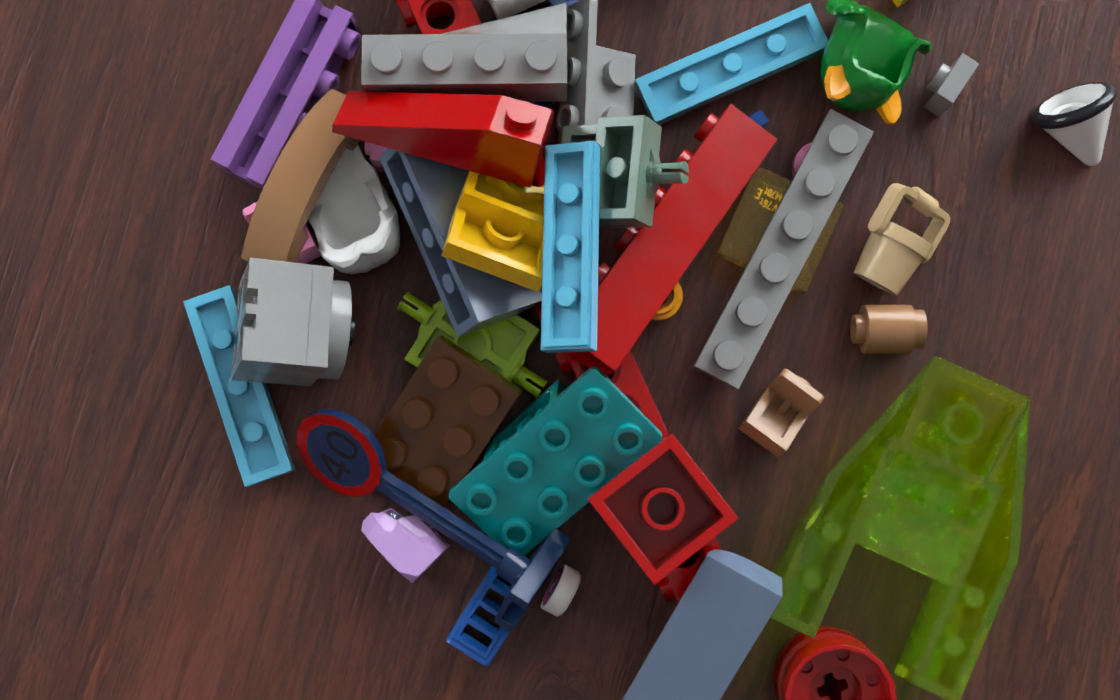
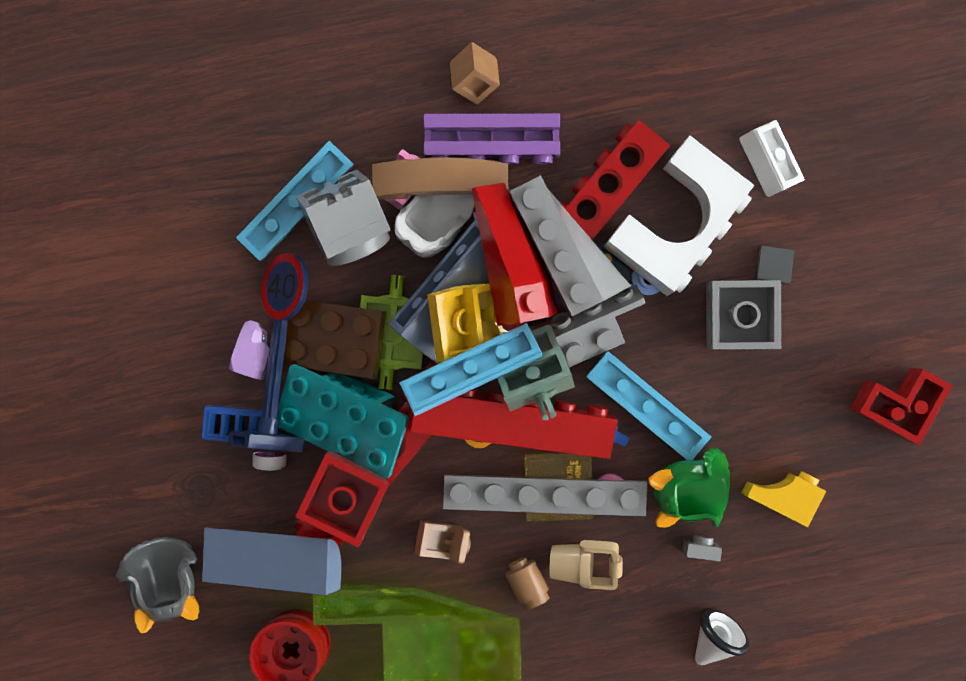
camera: 60 degrees right, 5 degrees up
(196, 76) = (474, 73): none -> medium nougat panel

